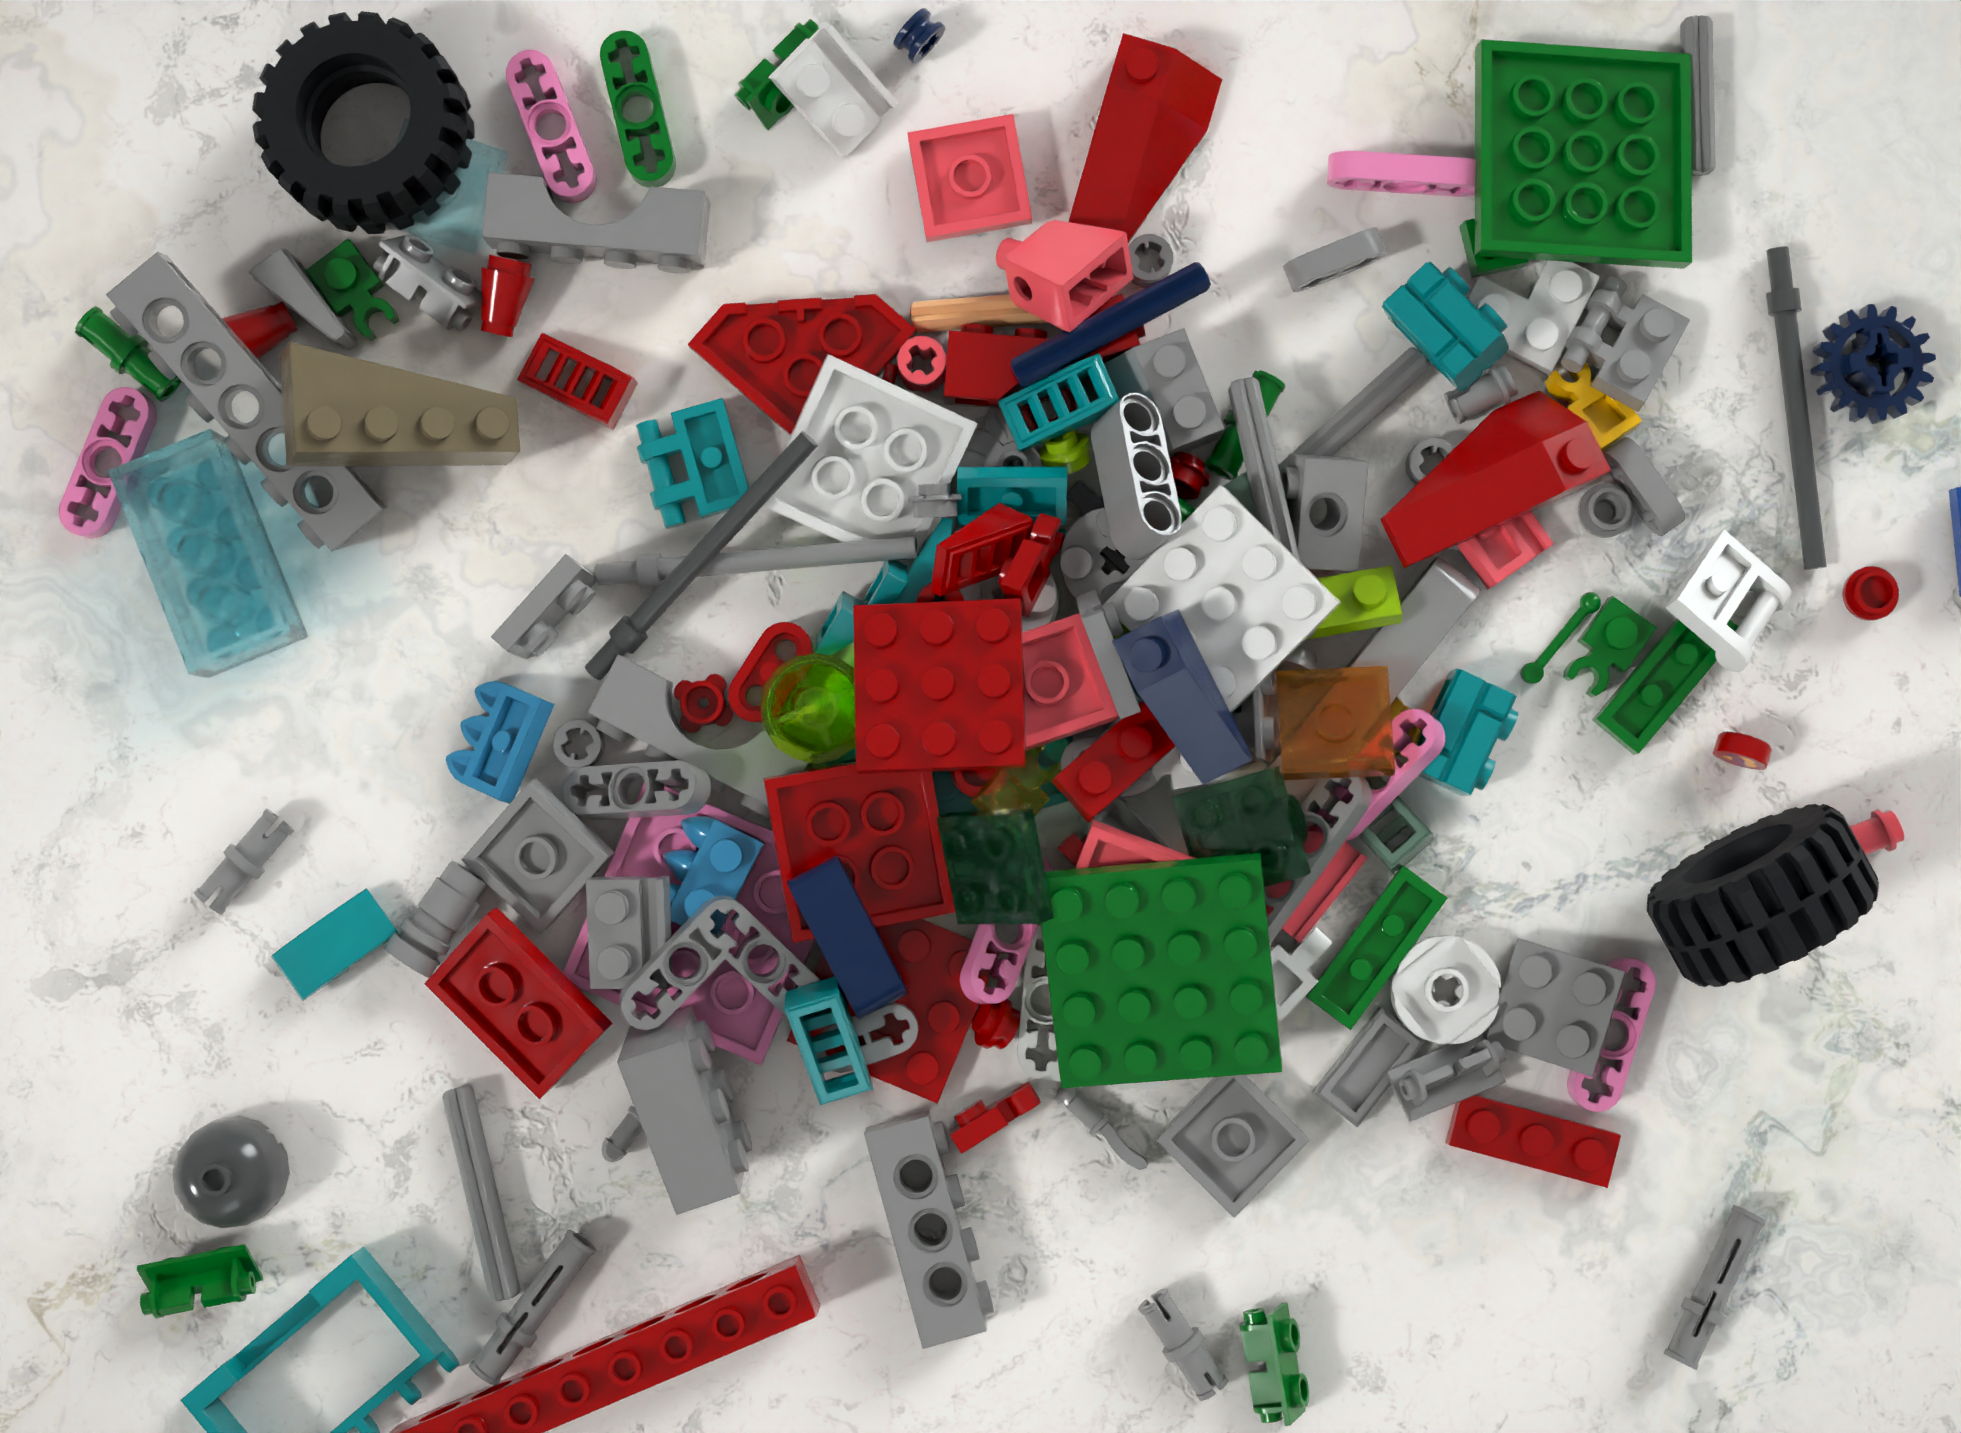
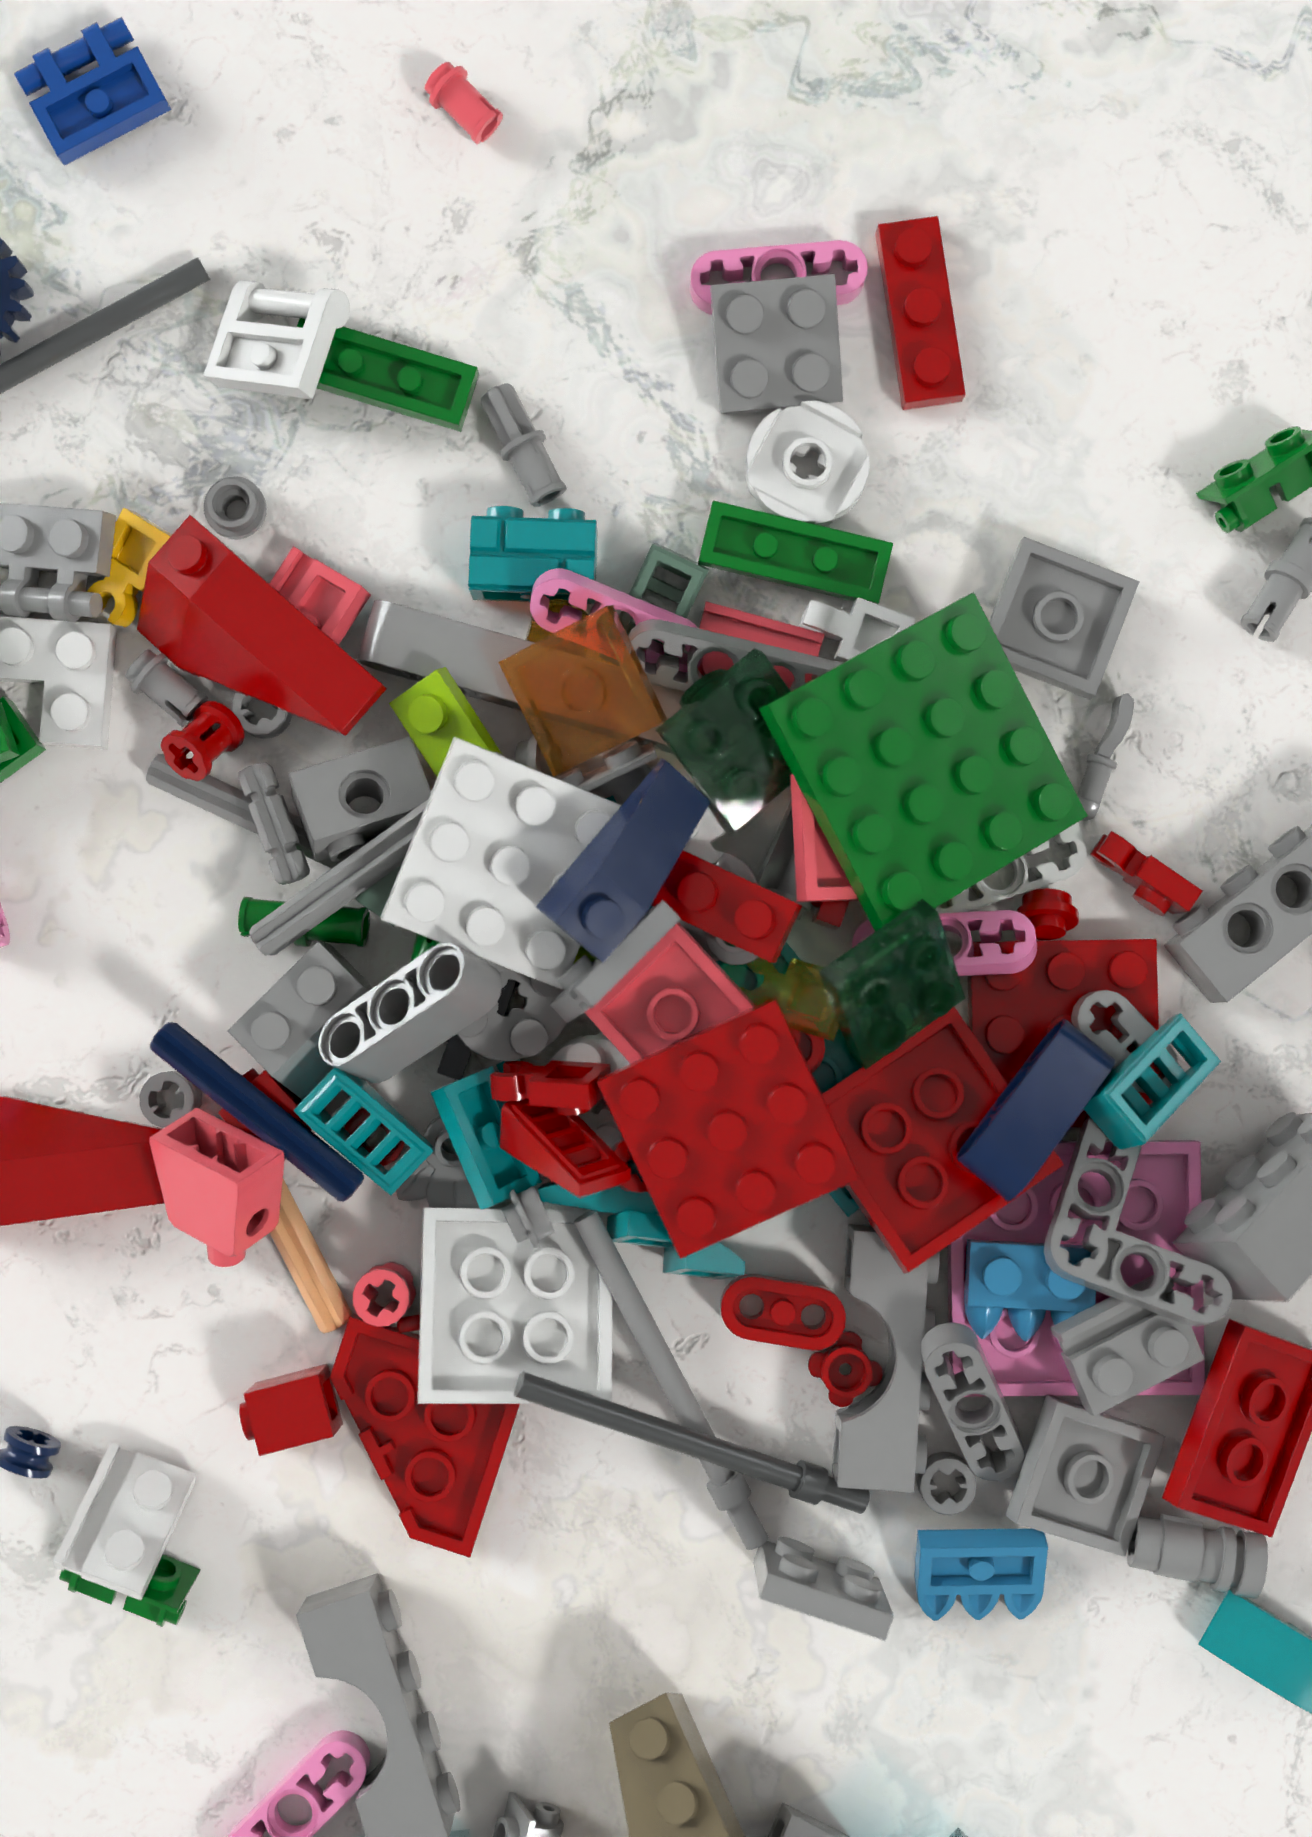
camera: 115 degrees left, 0 degrees up
(243, 861) = (1228, 1790): light grey pin -> none
(503, 294) = (499, 1781): red cone -> none
(615, 76) = (190, 1736): green beam -> none
(615, 399) = (565, 1608): red slope -> none
(710, 458) = (582, 1477): teal plate -> none
(810, 707) = (808, 1256): clear neon green cylinder -> none
(862, 253) = (291, 1410): none -> red brick
(969, 178) = (161, 1329): coral plate -> none
(980, 364) = (359, 1232): red slope -> none
(1067, 451) = (412, 1098): lime plate -> none
(1189, 475) = (383, 958): red plate -> none
(1334, 433) = (273, 823): none -> light grey axle
(1335, 259) = (86, 901): light grey beam -> none
(1359, 1073) = (920, 511): light grey tile -> none
(1430, 386) = (202, 740): none -> red bush
(1447, 325) = (106, 753): teal brick -> none
(1447, 1076) = (897, 424): light grey hinge -> none
(1533, 672) = (436, 512): green hinge -> none
(1559, 764) = (522, 444): none -> light grey axle
(1612, 640) = (367, 444): green plate -> none
(1645, 486) = (192, 475): light grey beam -> none
(1688, 1347) = (992, 67): light grey pin -> none
(1742, 750) = (427, 262): red tile -> none
(1763, 896) = (574, 166): black tyre -> none
(1870, 593) = (206, 200): red plate -> none

